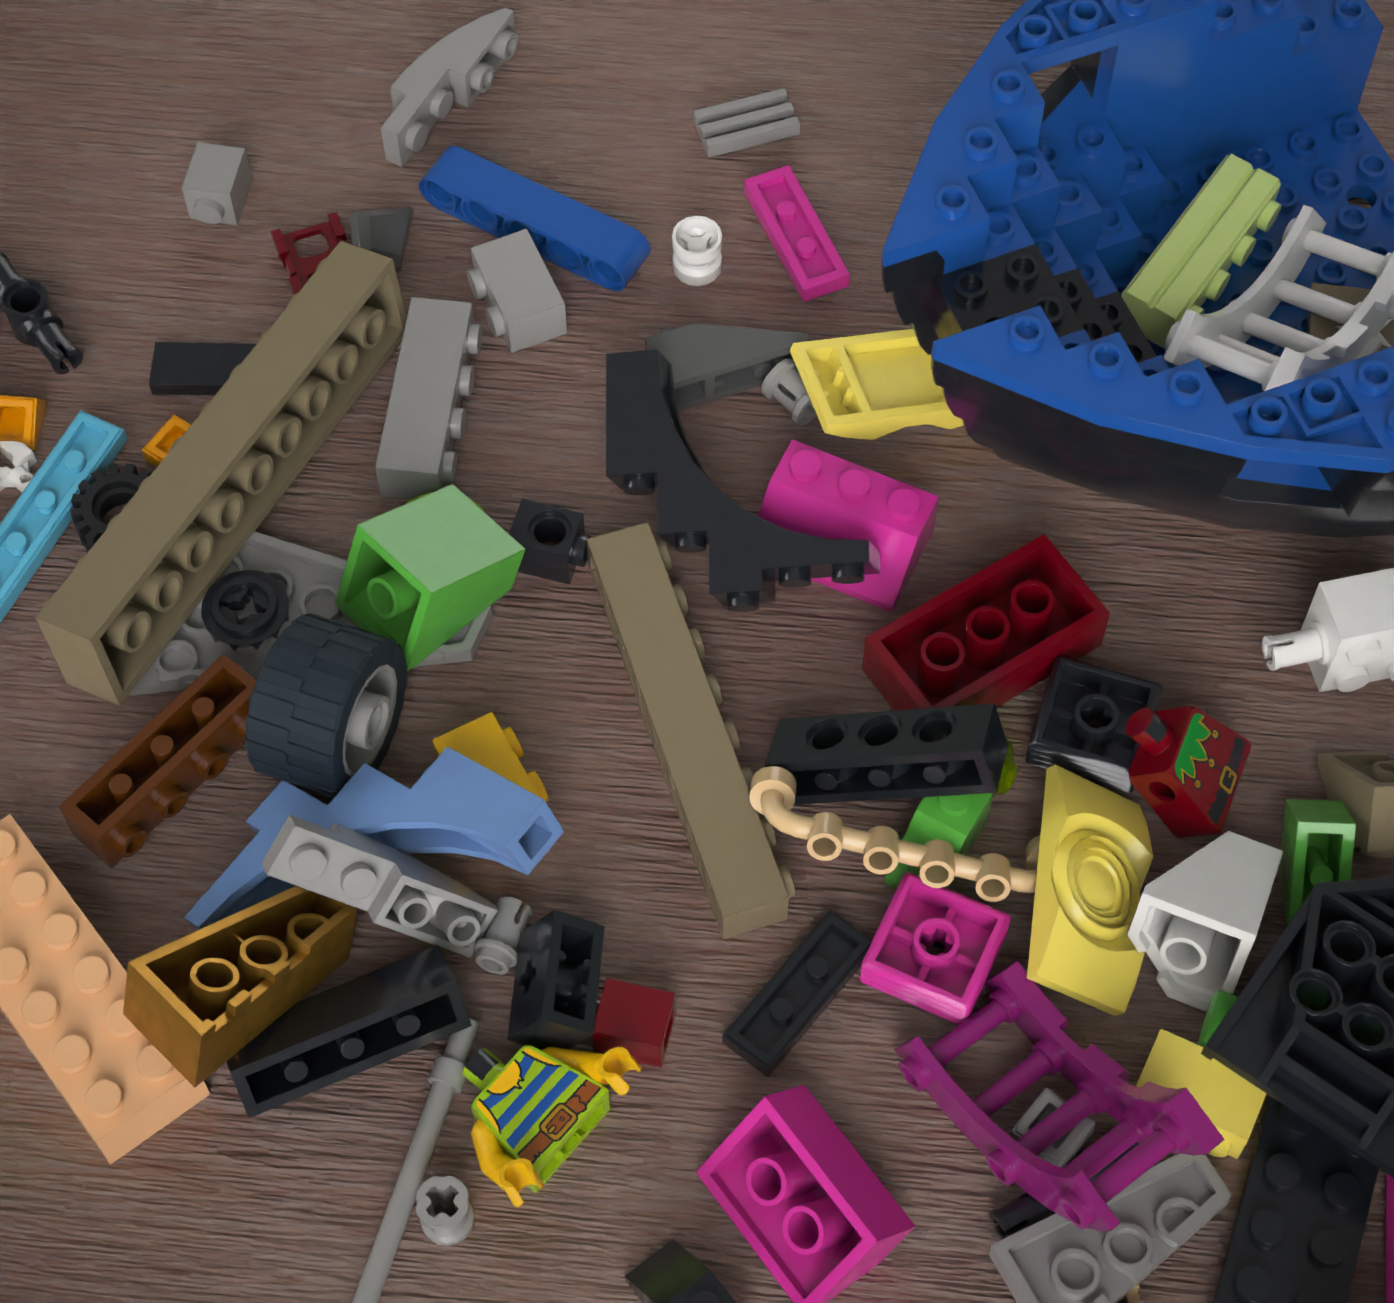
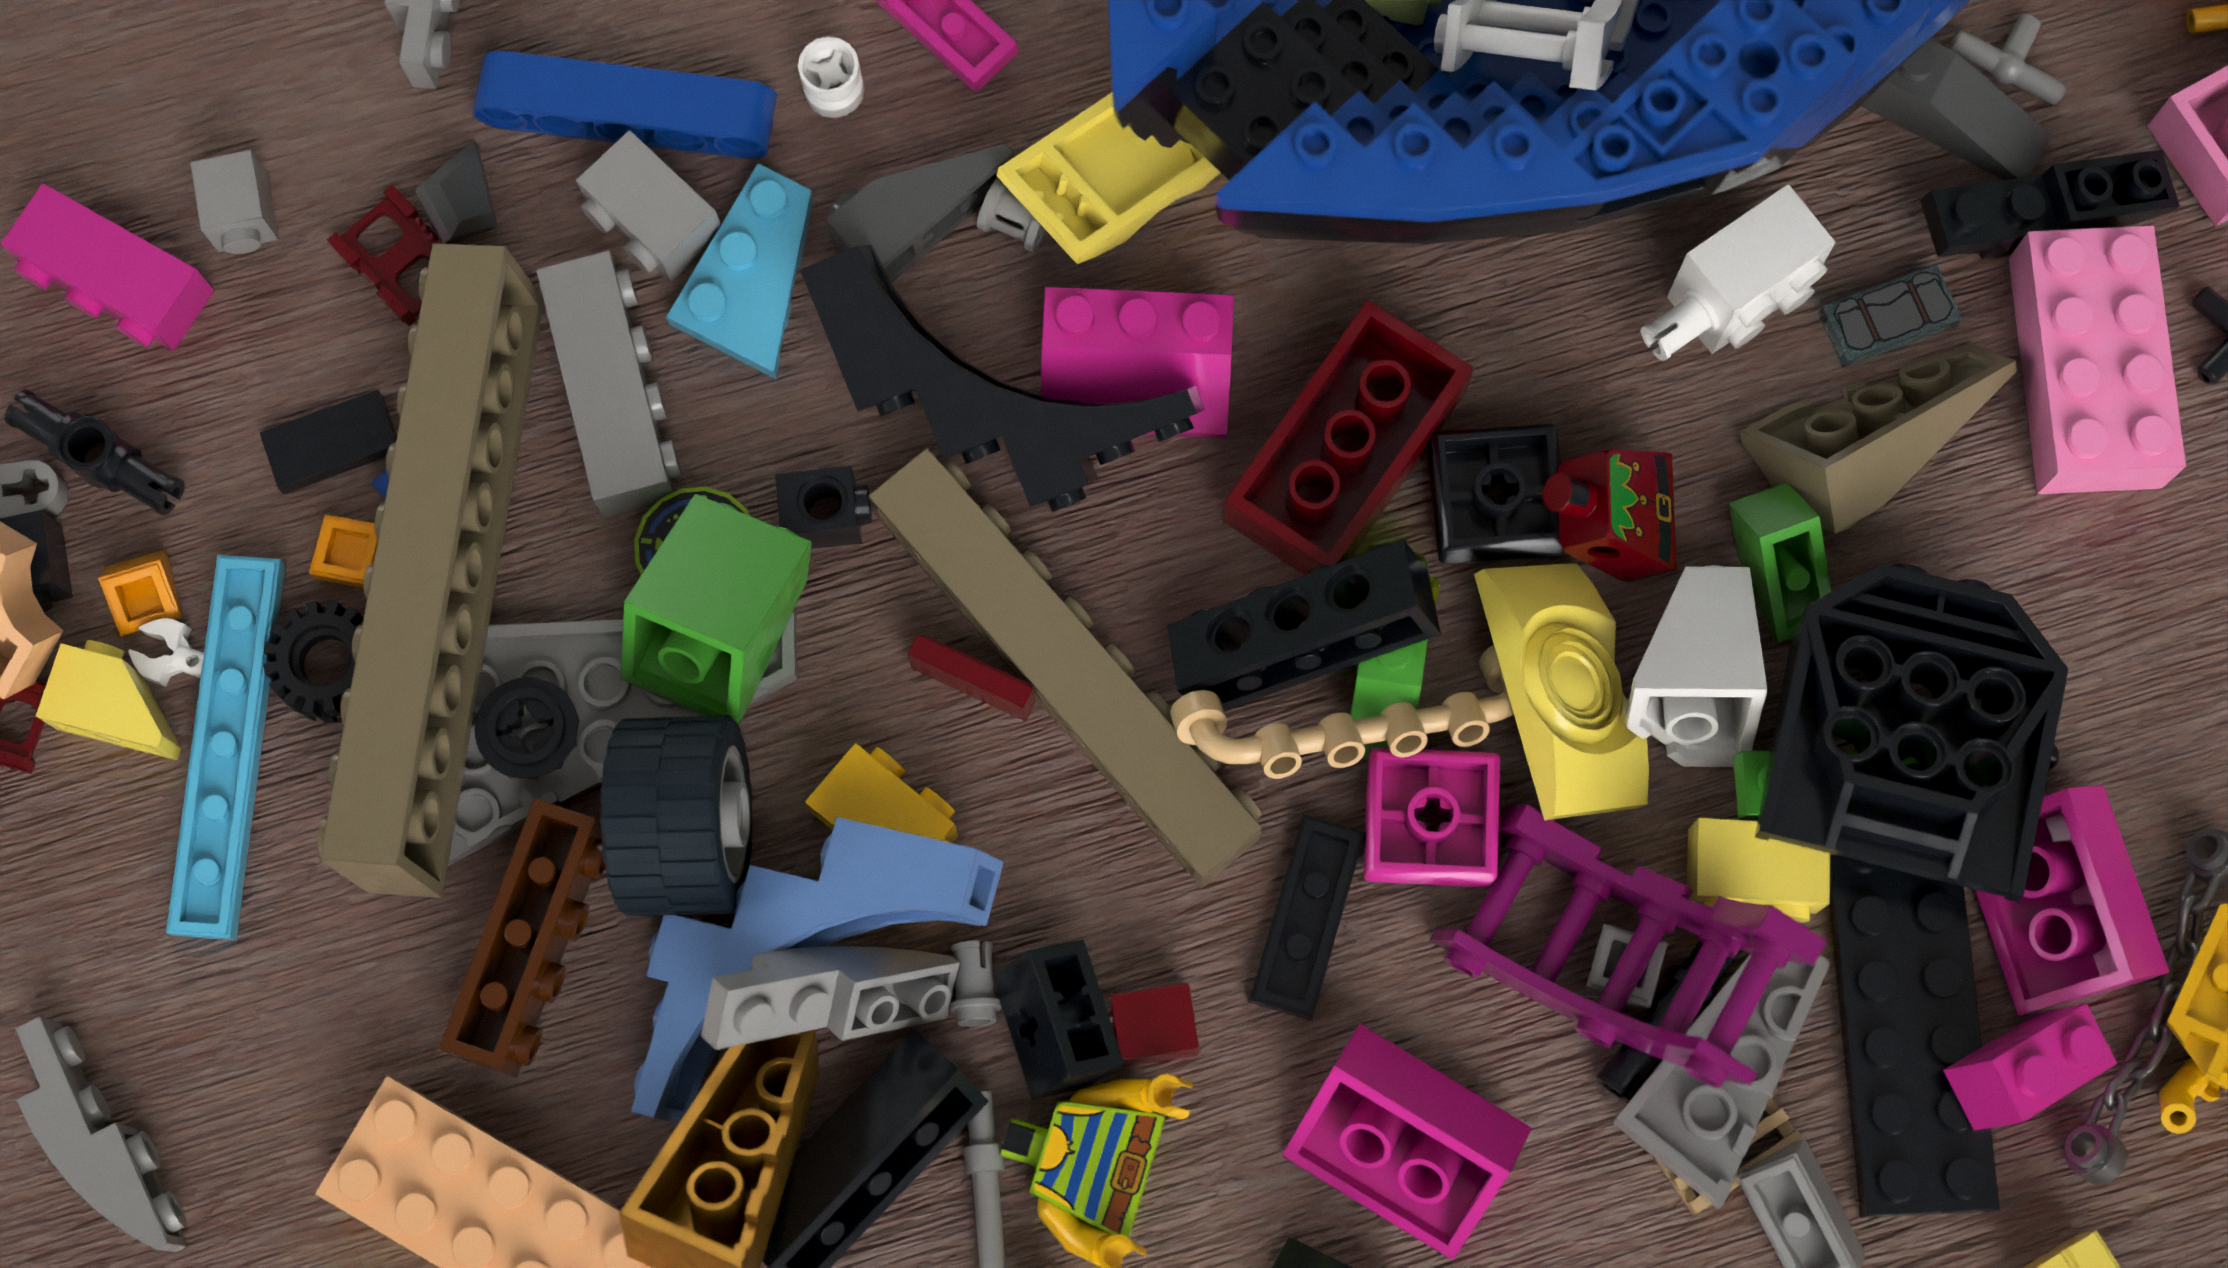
camera: 20 degrees left, 15 degrees up
(103, 196) = (106, 269): none -> dark pink brick
(568, 366) = (748, 273): none -> medium azure wing
(608, 705) = (972, 676): none -> dark red tile

